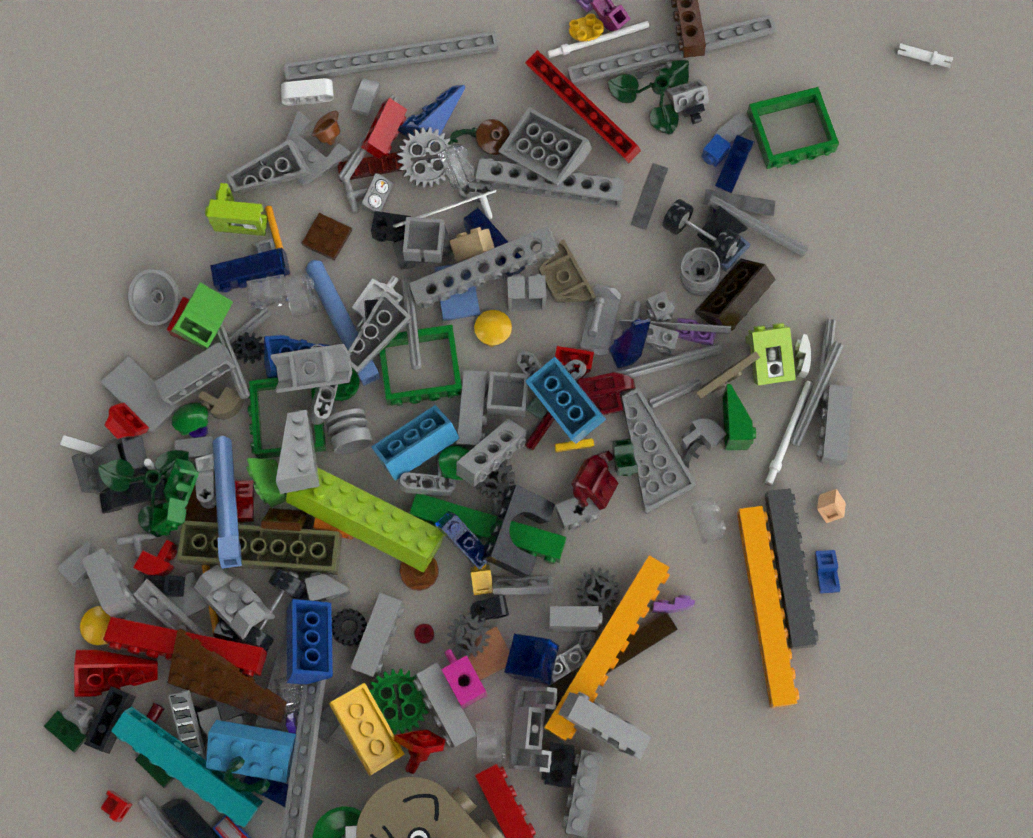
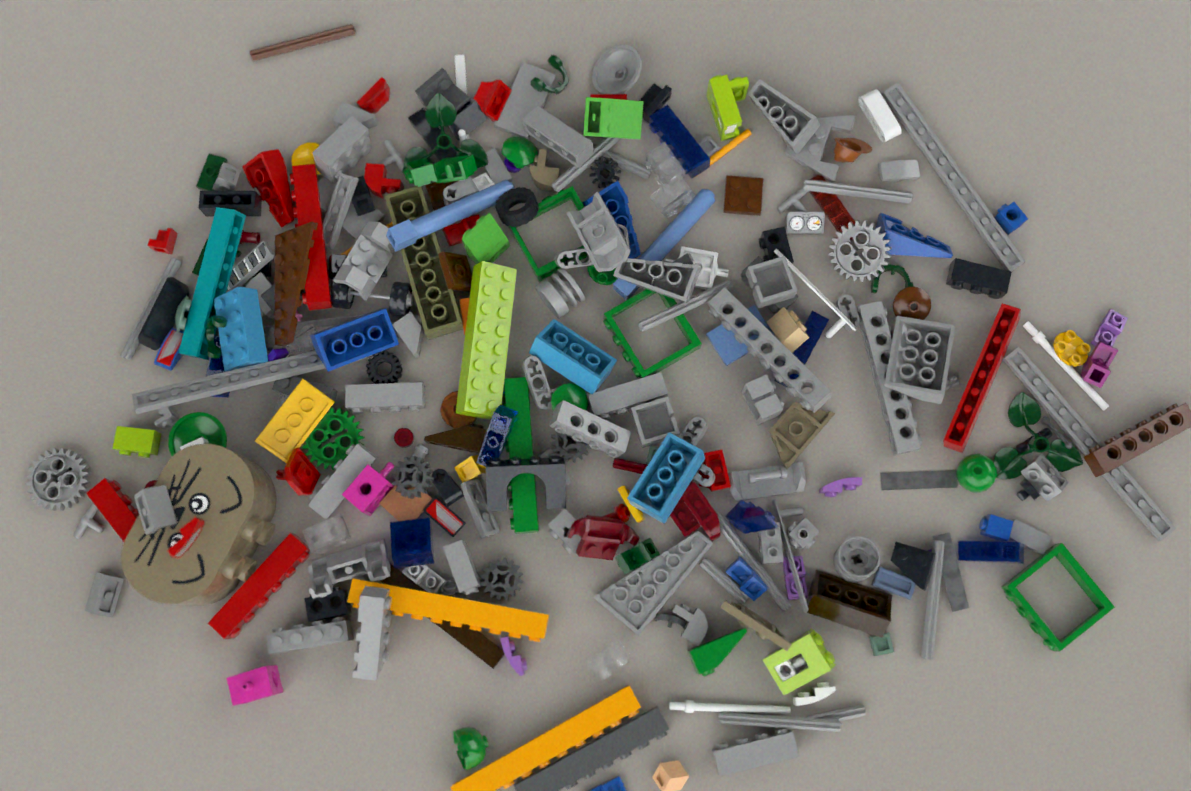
camera: 70 degrees right, 5 degrees up
(67, 535) = (375, 97): none -> red slope
(133, 373) = (557, 64): none -> dark green piece
(195, 274) = (654, 100): none -> black panel
(205, 810) = (184, 306): none -> sand green dish
(235, 435) = (519, 216): none -> black tyre
(297, 459) = (515, 256): light grey wedge -> none
(384, 128) = (872, 200): brick -> none
(445, 621) = (420, 451): none -> light grey pin
(450, 20) = (1005, 223): none -> blue brick
(451, 573) = (462, 438): none -> dark brown slope
(457, 165) = (864, 282): clear brick -> none
(493, 74) = (978, 278): none -> black brick
(493, 327) = (717, 383): yellow dish -> none
(516, 622) = (444, 516): none -> slope
(578, 458) = (621, 512): none -> red plate
(630, 262) = (835, 487): none -> medium lavender slope
(655, 99) = (1025, 445): none -> black axle
(662, 146) = (976, 473): none -> green cylinder
(678, 217) = (904, 516): black axle -> none
(681, 371) = (747, 578): none -> blue slope
(742, 675) = (470, 746): none -> green cylinder
(781, 284) = (881, 645): none -> sand green tile

